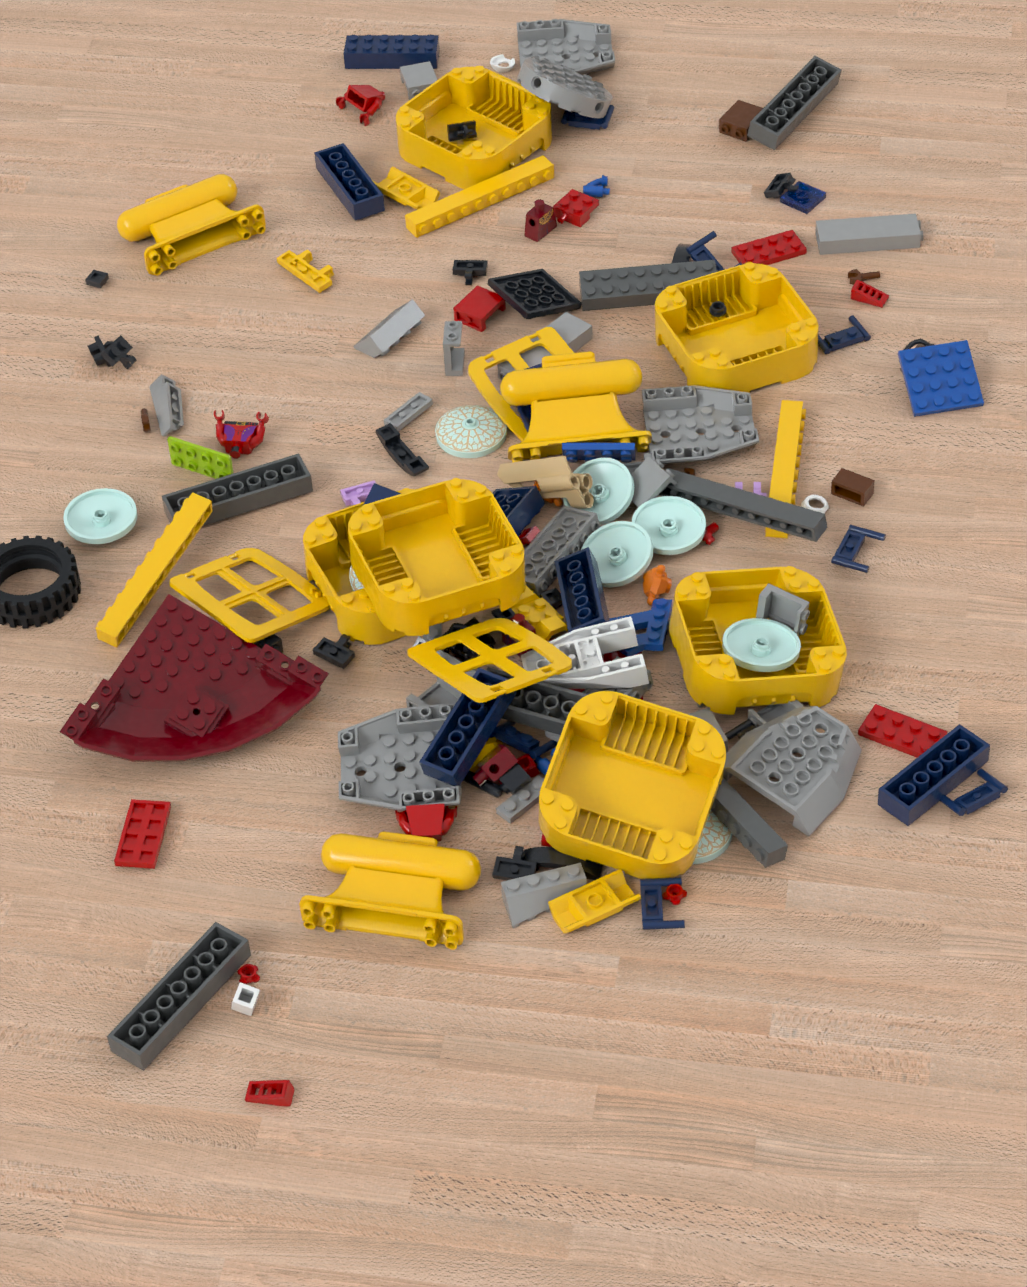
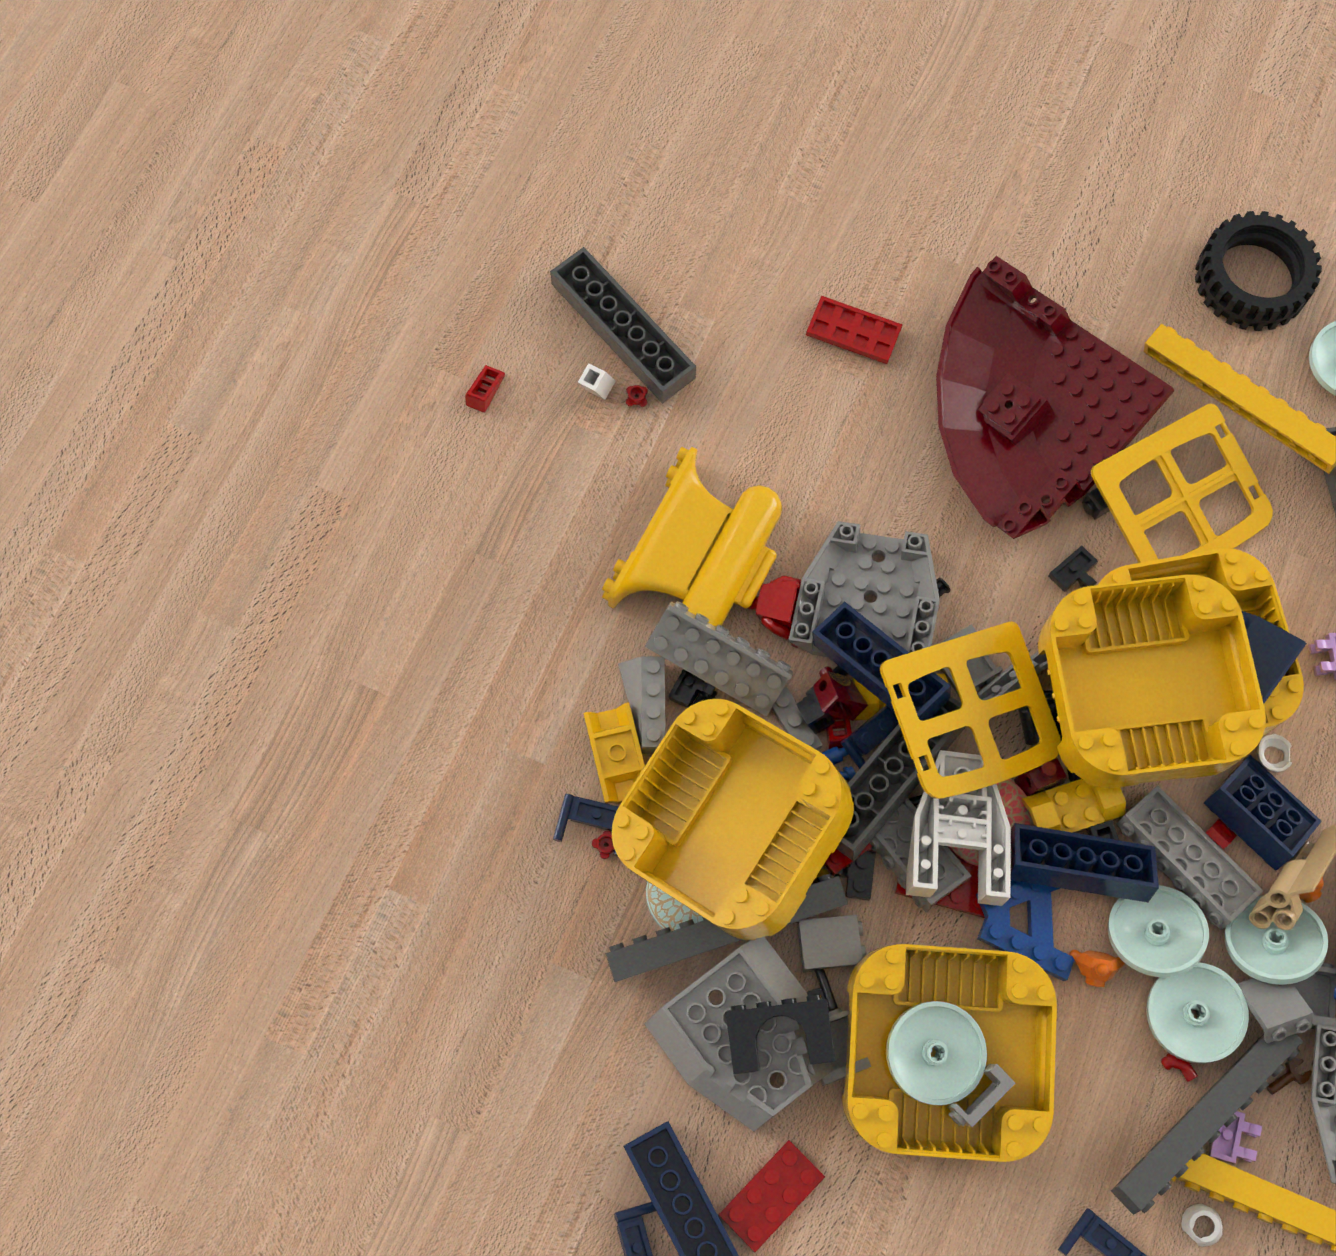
camera: 100 degrees right, 25 degrees up
(491, 842) = (719, 657): none -> light grey bracket
(787, 746) = (745, 1024): none -> black arch

